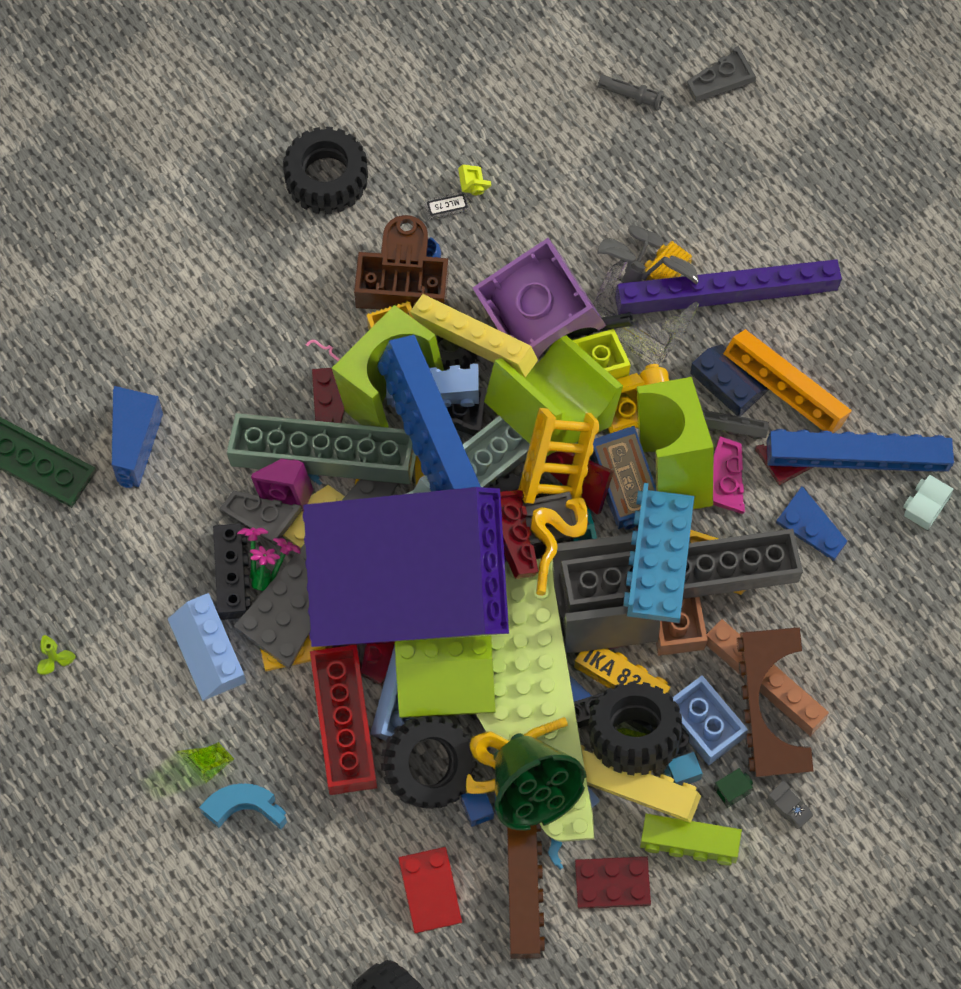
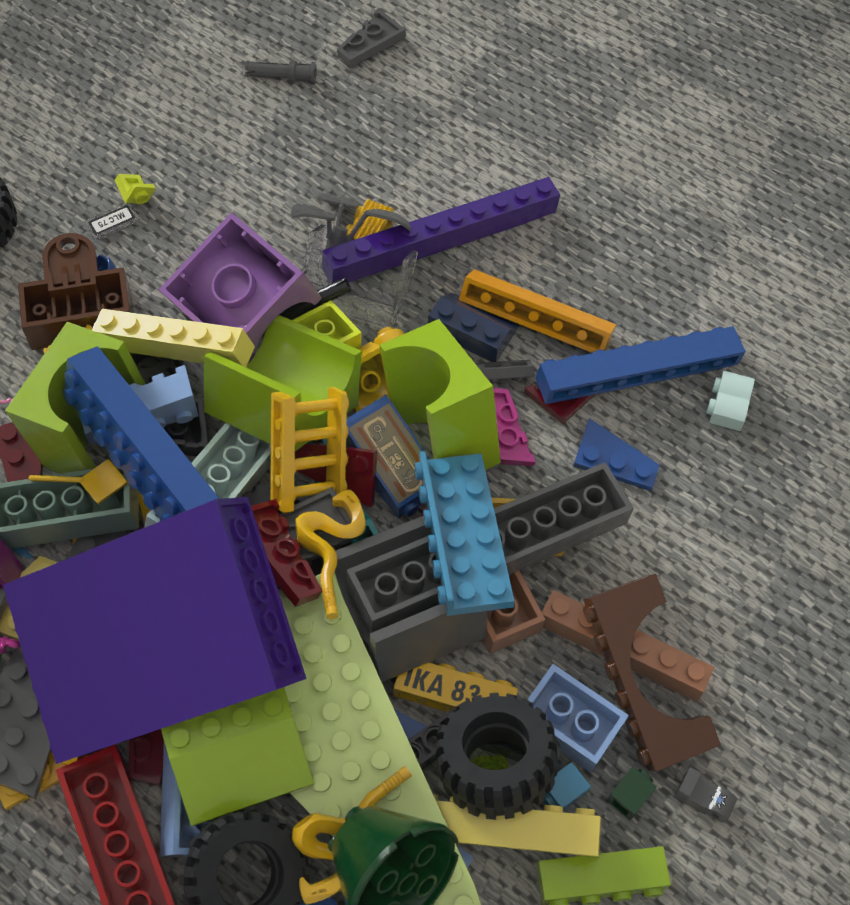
camera: 20 degrees left, 5 degrees down
(389, 440) = (99, 482): none -> yellow piece

